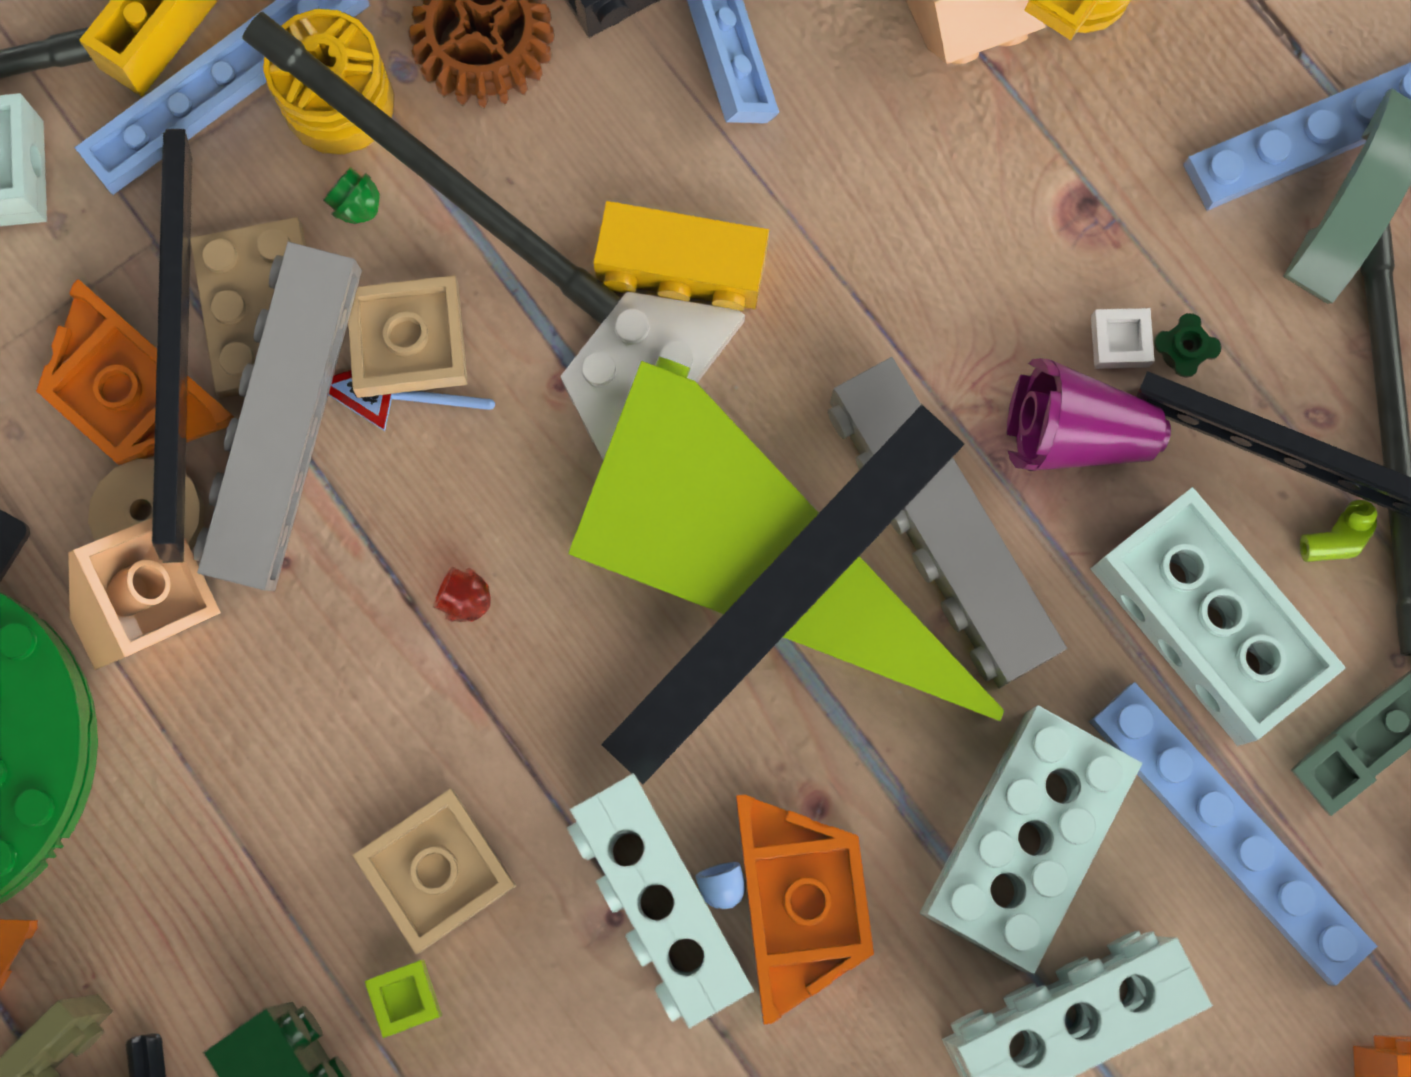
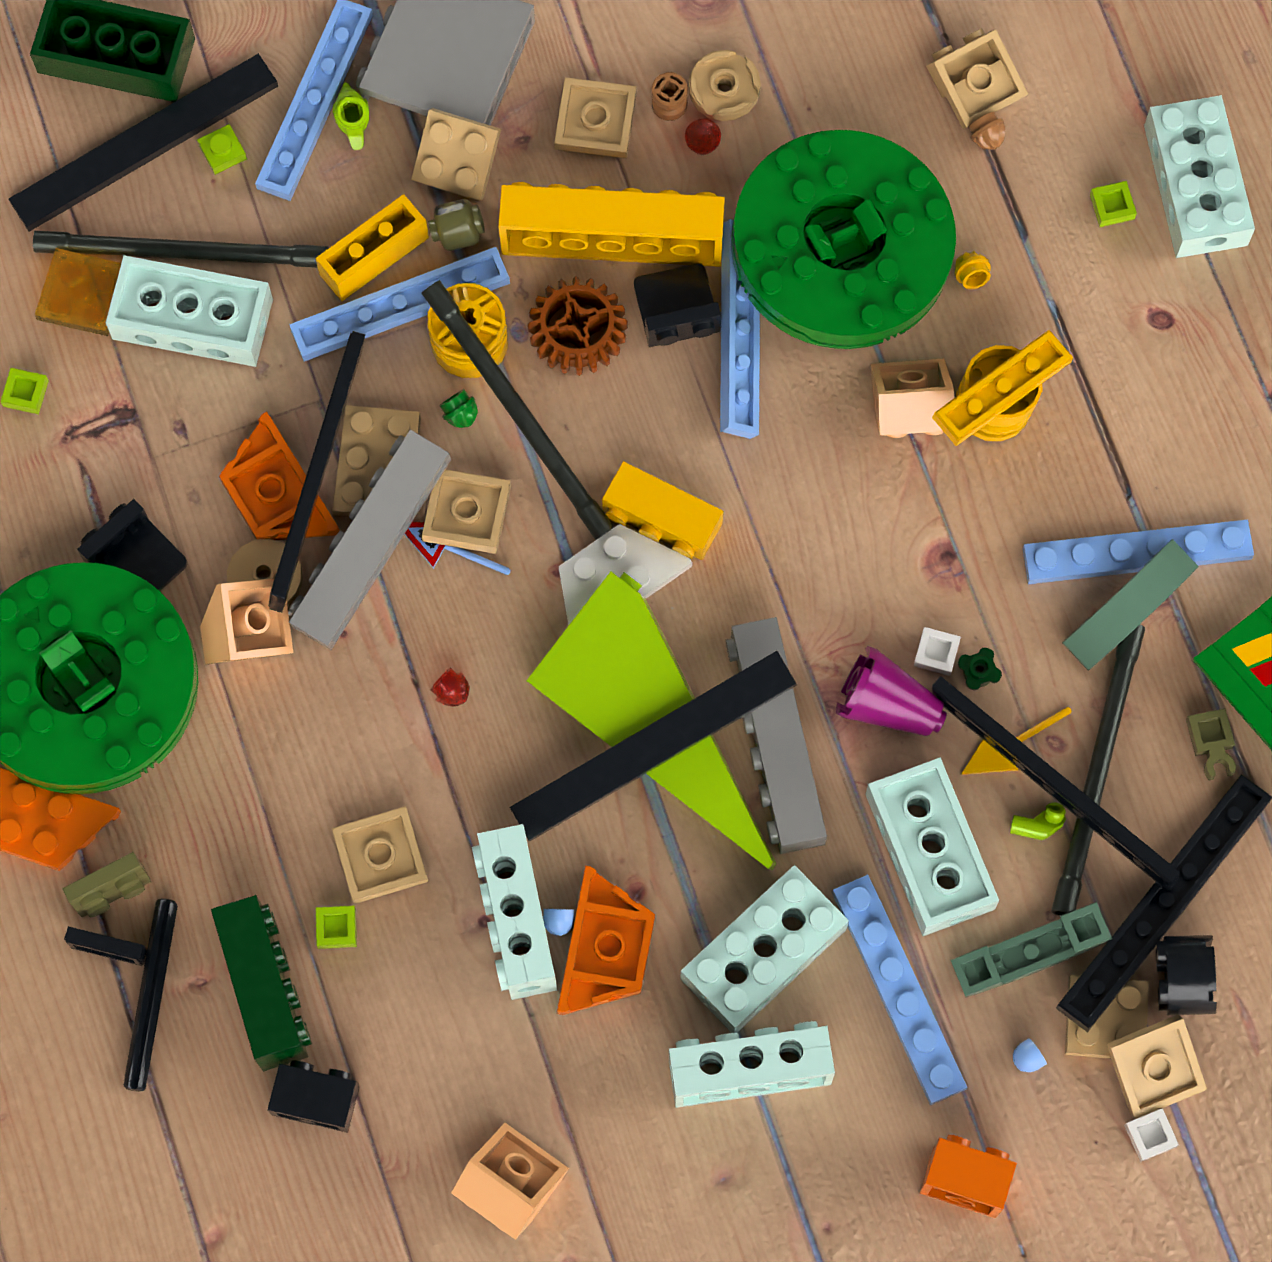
camera: 20 degrees right, 5 degrees down
(1239, 467) = (988, 760): none -> yellow piece

